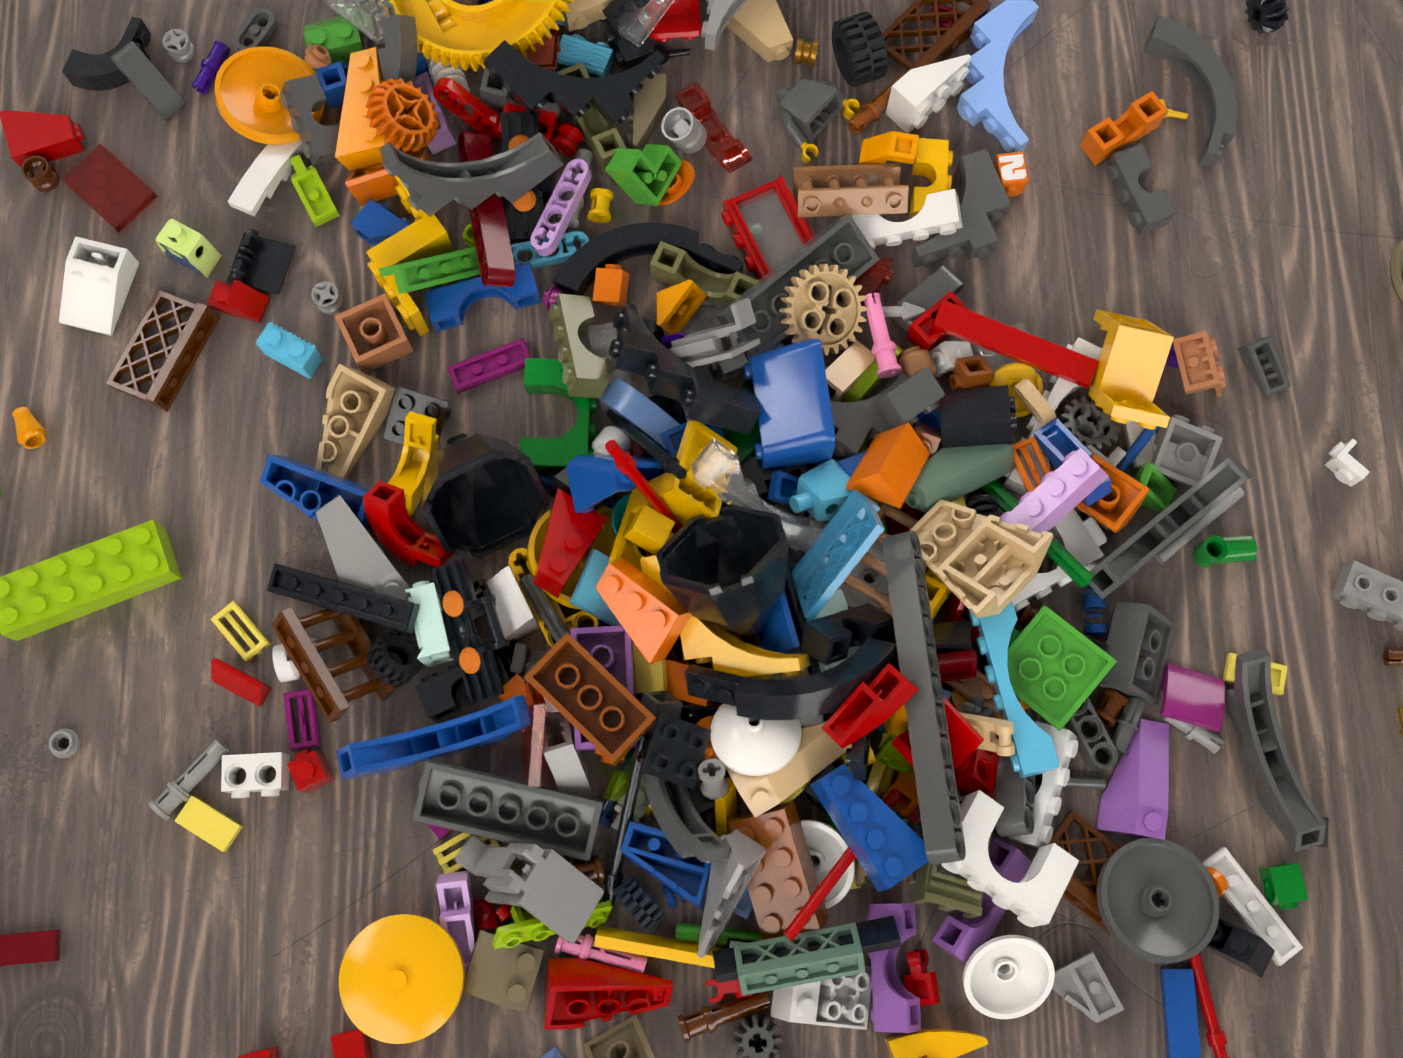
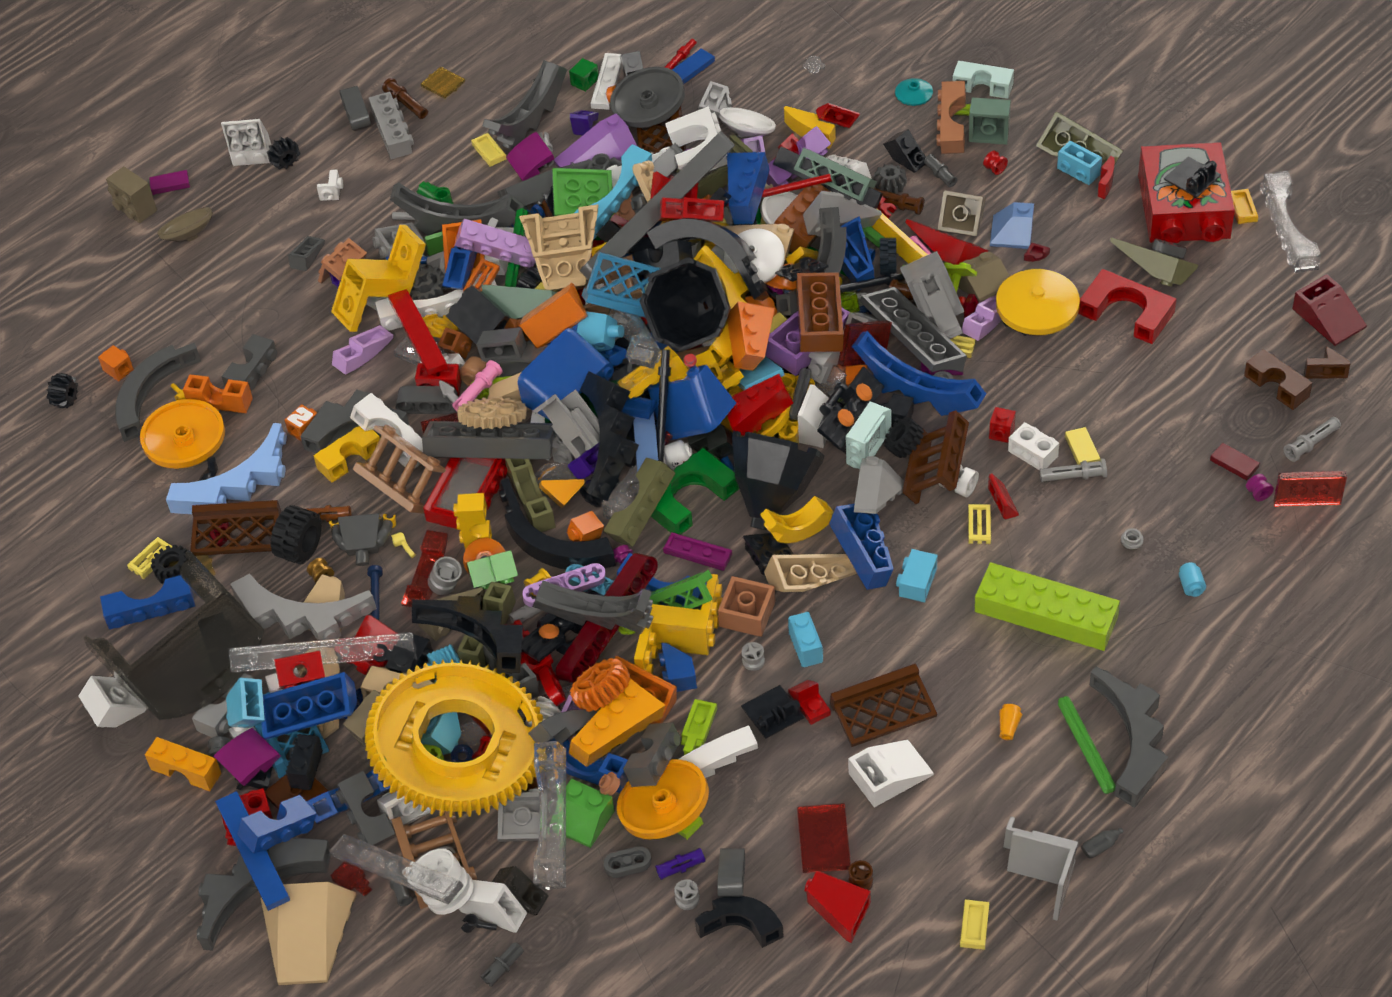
camera: 130 degrees left, 25 degrees down
(181, 245) = (807, 740): yellowish green torso -> none
(240, 506) = (917, 575): none -> medium azure brick
(290, 719) = (983, 472): magenta tile -> none
(343, 598) = (904, 480): black tile -> none
(396, 530) = (837, 485): red arch -> none
(710, 187) = (472, 518): none -> yellow arch
(712, 773) = (795, 249): light grey bush -> none
(759, 94) = (375, 573): none -> dark blue bar
(776, 145) = (398, 540): none -> light yellow hand
(889, 146) = (351, 479): light orange slope -> none
(925, 91) = (289, 486): white slope -> none
(1029, 58) = (211, 470): none -> black bar
(1034, 402) = (442, 303): tan beam -> none
(1060, 301) = (361, 349): none -> lavender slope
(1099, 64) = (182, 433): none -> light orange dish
(1200, 810) = (582, 121): none -> dark purple slope
(1265, 83) = (116, 363): none -> orange brick

